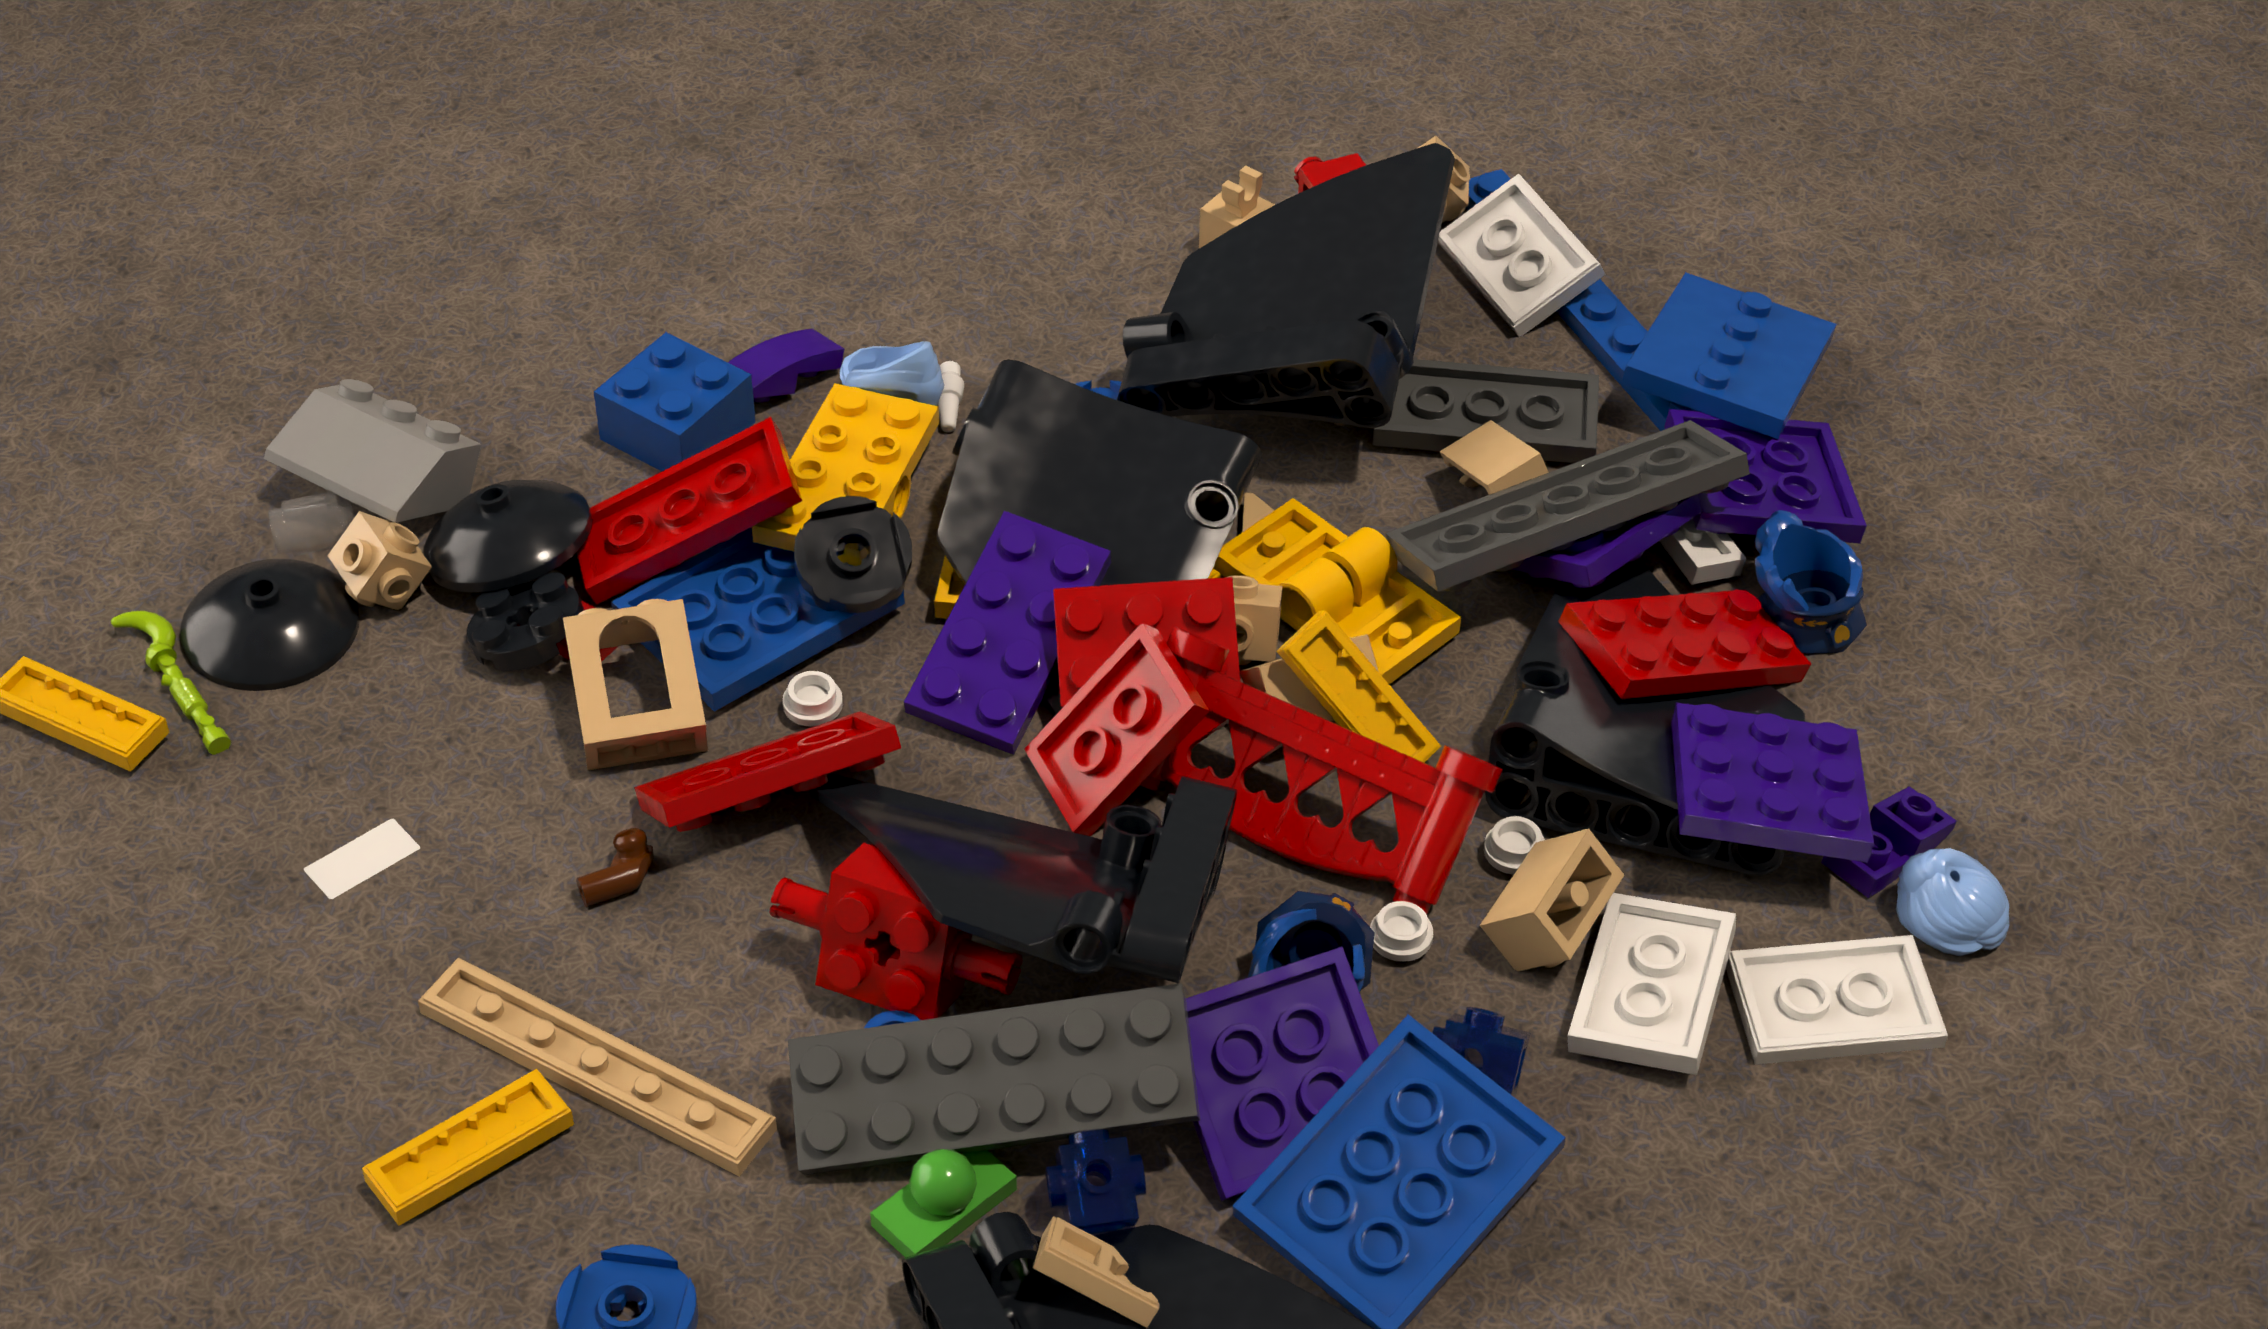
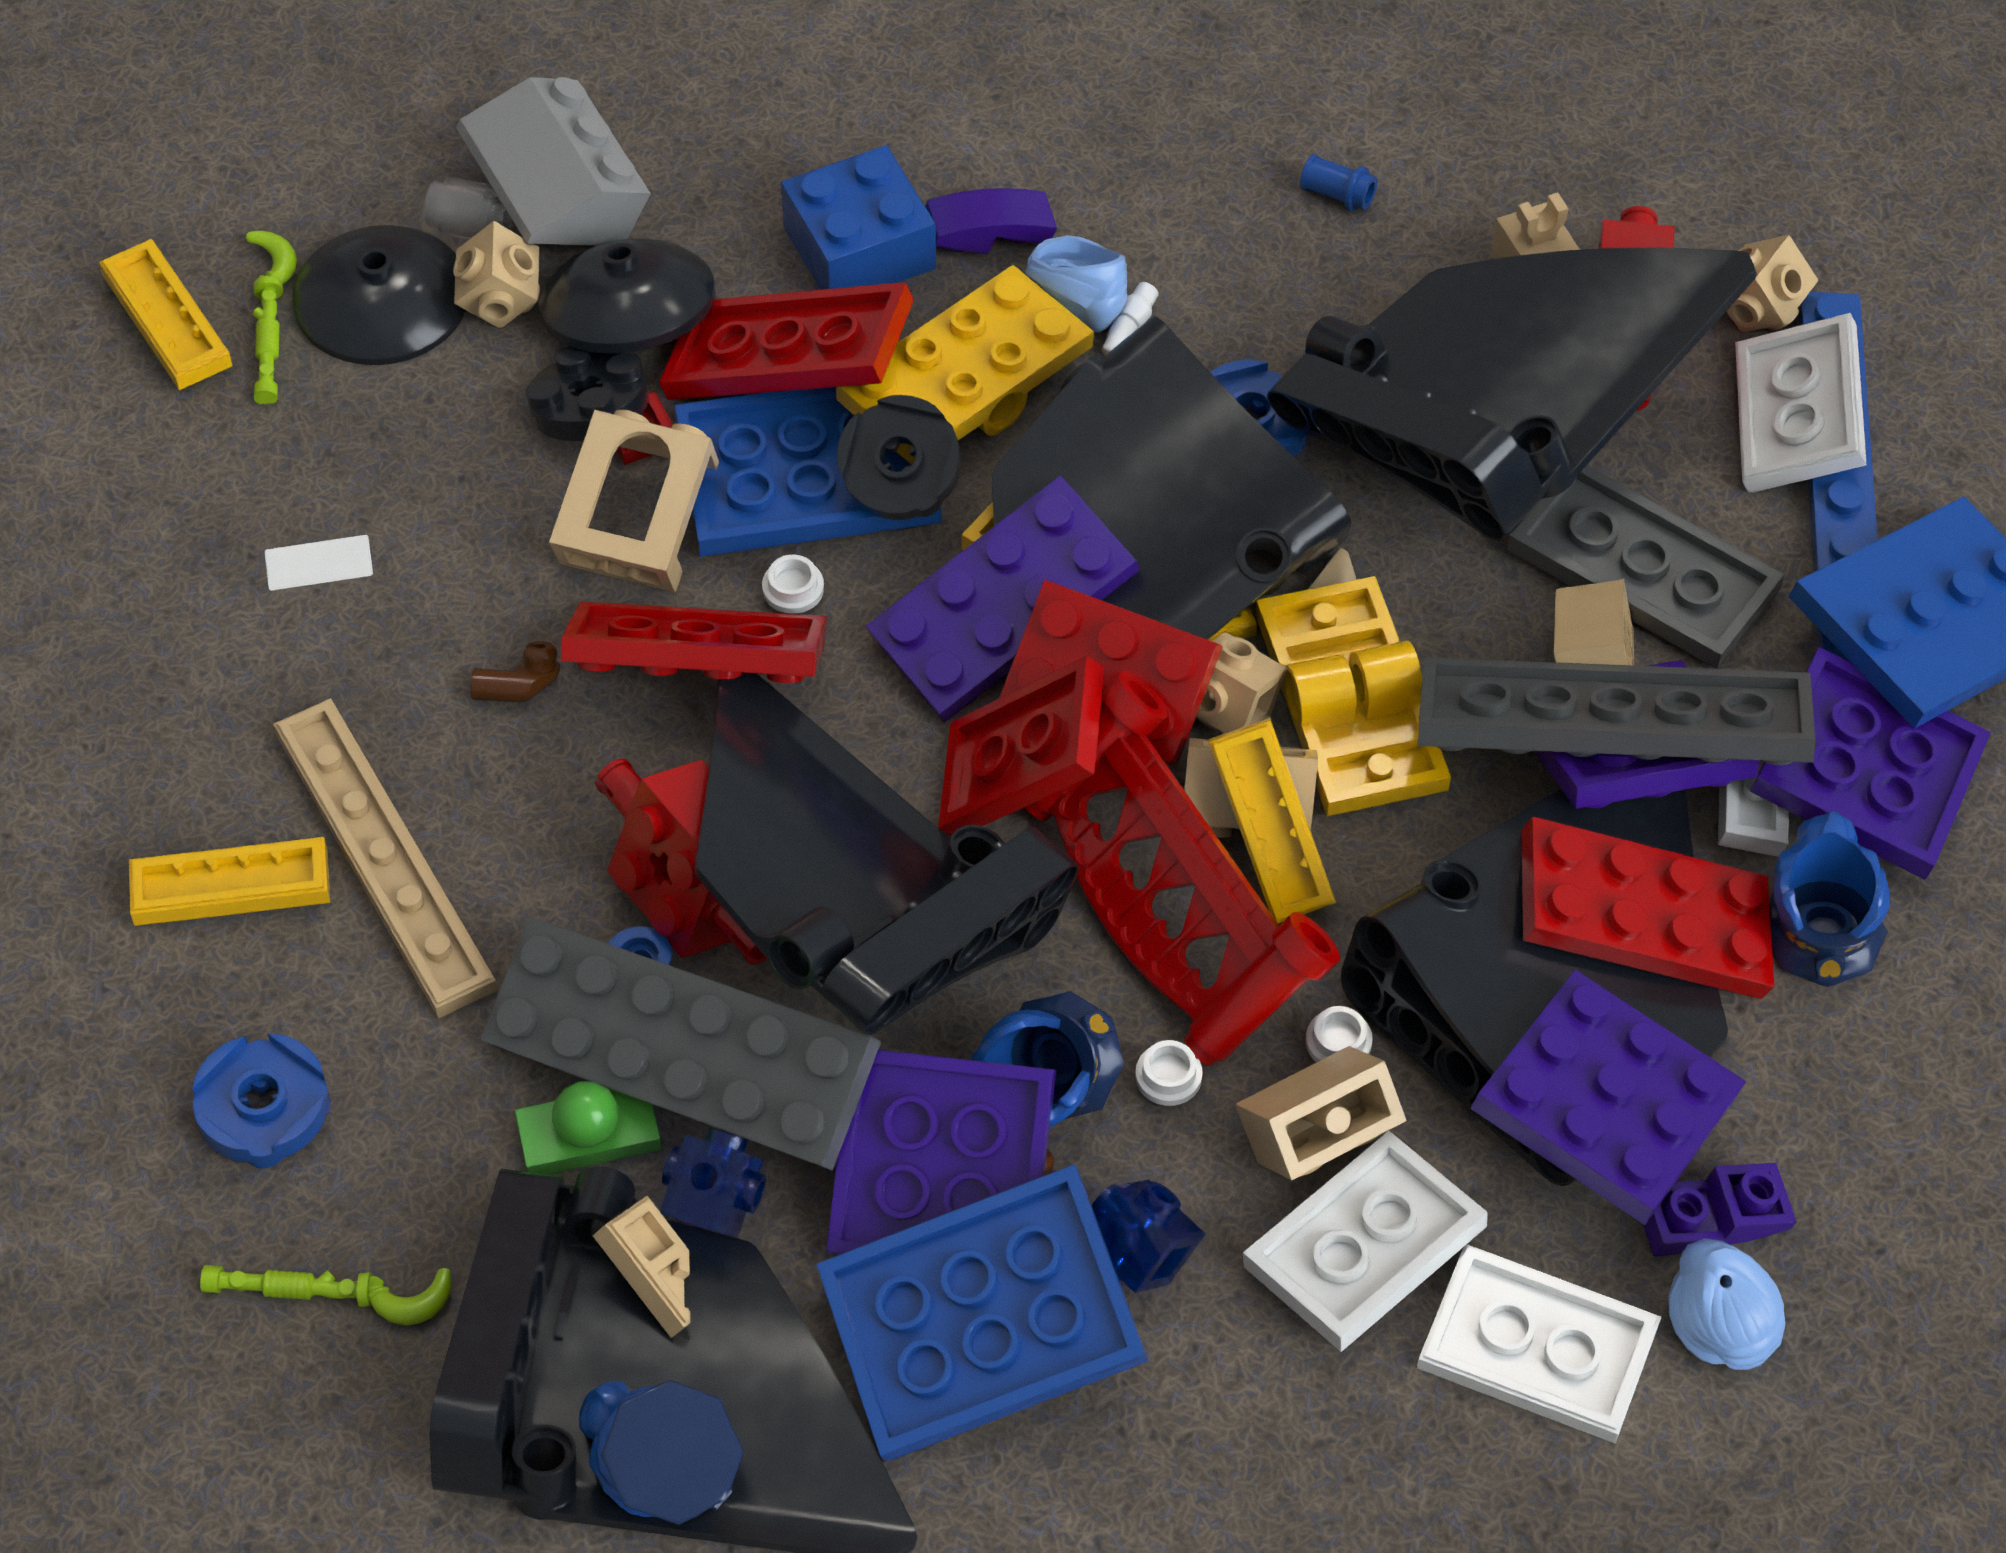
camera: 30 degrees right, 10 degrees up
(1046, 236) = (1339, 182): none -> blue pin

